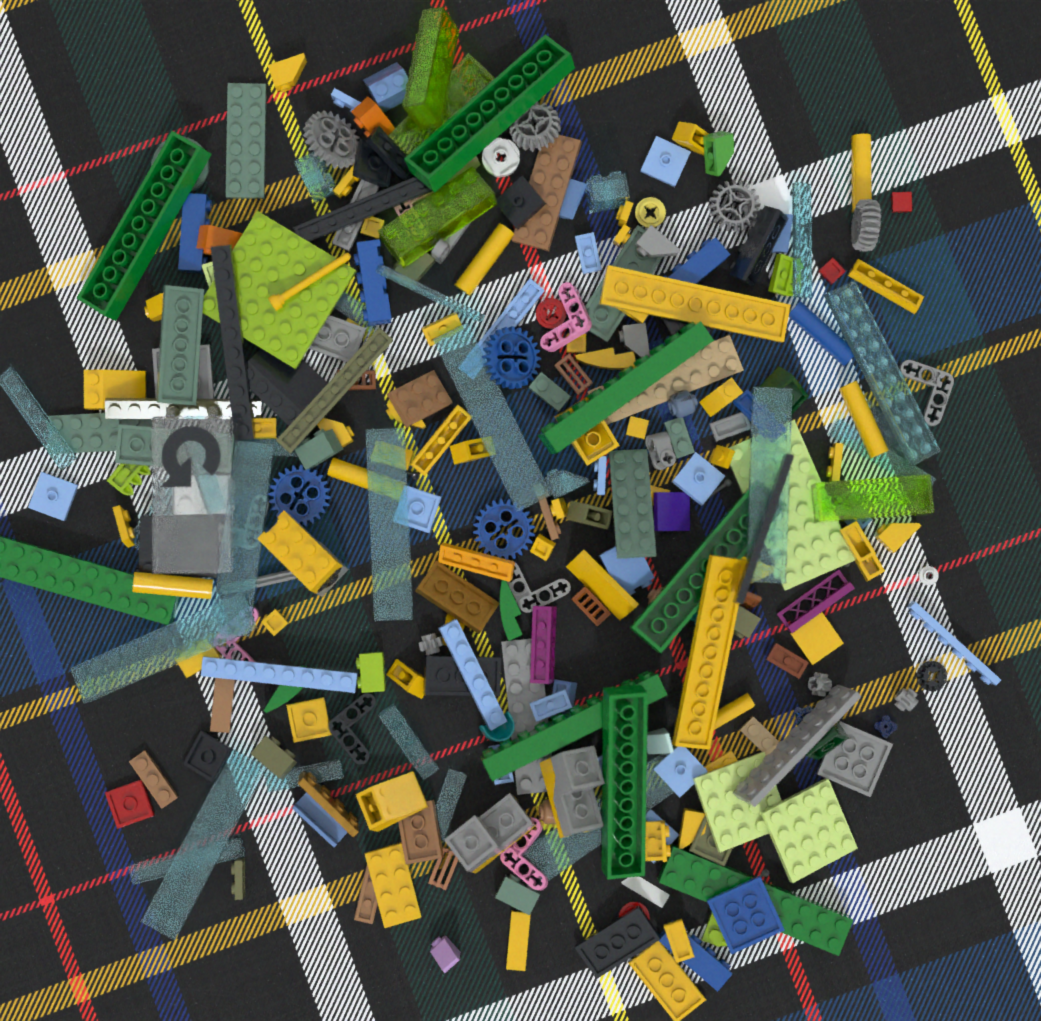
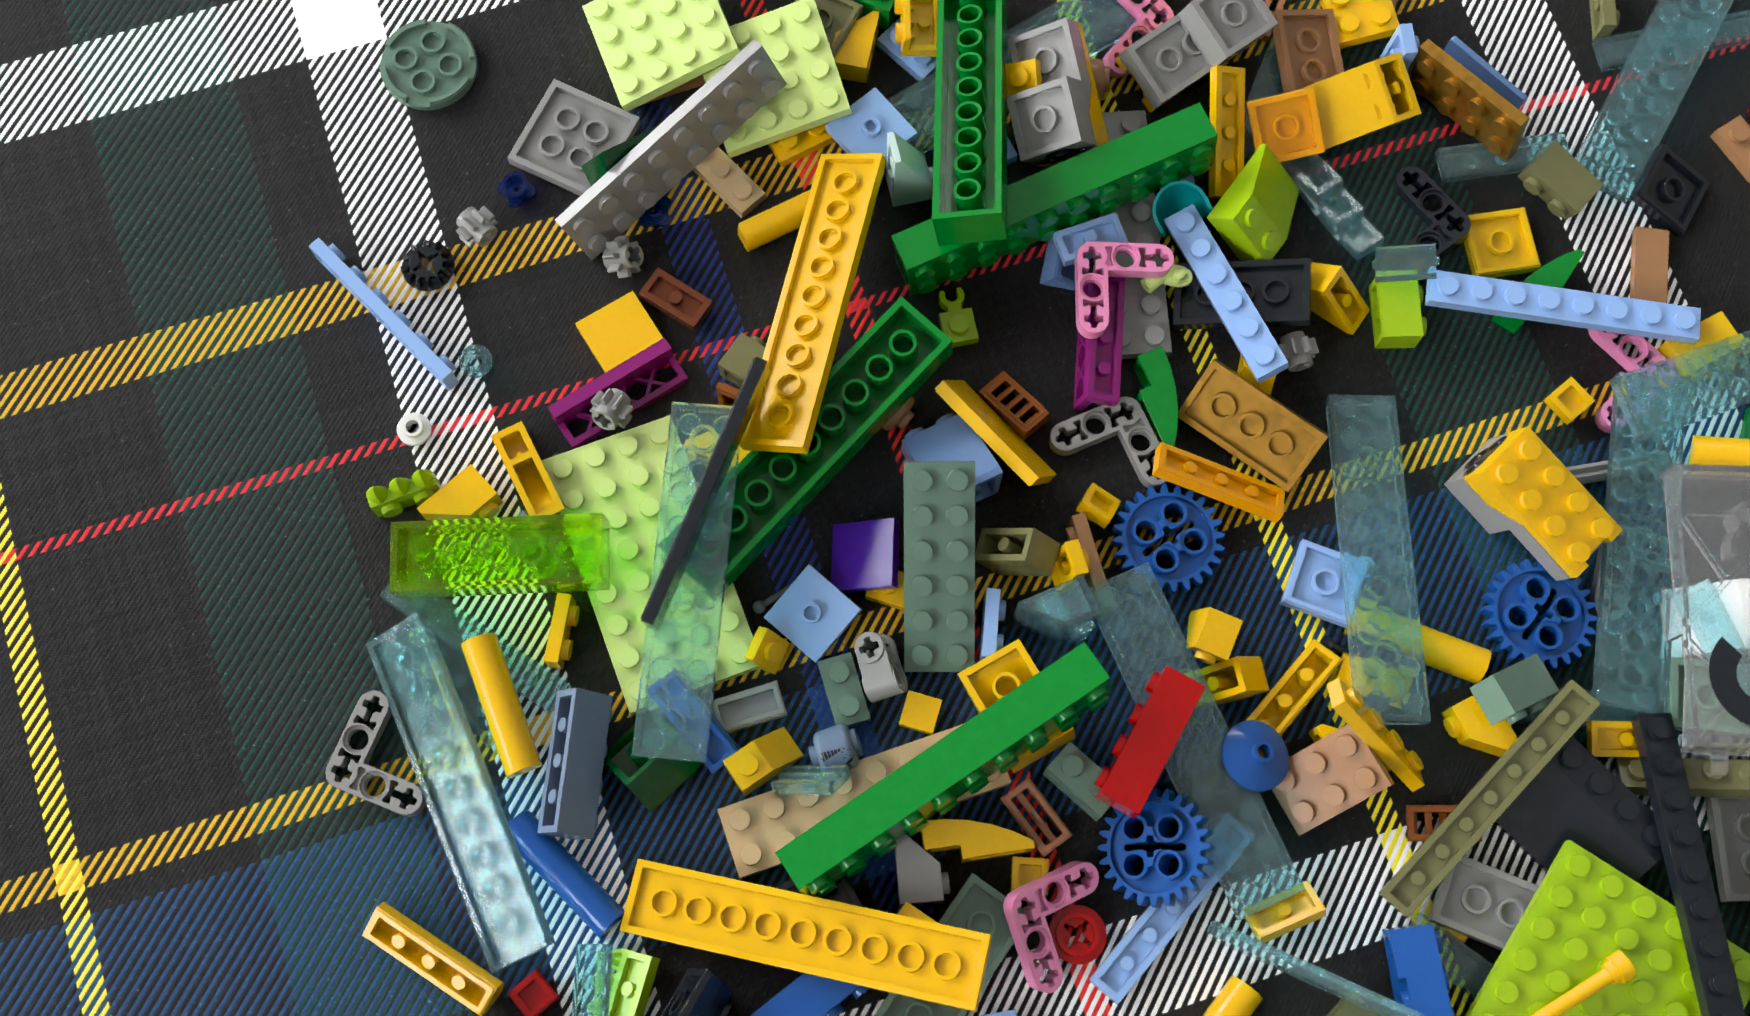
camera: 175 degrees left, 15 degrees down
(366, 836) = (1403, 41): none -> light blue plate
(368, 698) = (1405, 263): none -> clear light blue piece
(395, 419) = (1372, 731): none -> yellow plate
(436, 782) = (1287, 124): none -> light orange plate
(452, 730) = (1257, 208): none -> lime slope
(467, 404) = (1244, 762): none -> blue dish
(470, 778) = (1228, 120): none -> yellow plate
(482, 472) = (1212, 634): none -> yellow slope
(505, 686) = (1176, 277): none -> yellowish green arm
(517, 409) = (1149, 741): none -> red brick
(541, 685) = (1108, 267): none -> bright pink beam
(593, 799) = (1022, 75): none -> yellow plate
(623, 654) = (957, 322): none -> lime plate
(699, 385) = (811, 780): none -> clear light blue tile
(818, 589) = (611, 409): none -> light grey gear
(821, 389) = (575, 764): none -> sand blue brick
(904, 618) = (471, 353): none -> clear light blue plate
(921, 538) = (402, 493): none -> lime plate
(946, 806) = (428, 64): none -> sand green tile

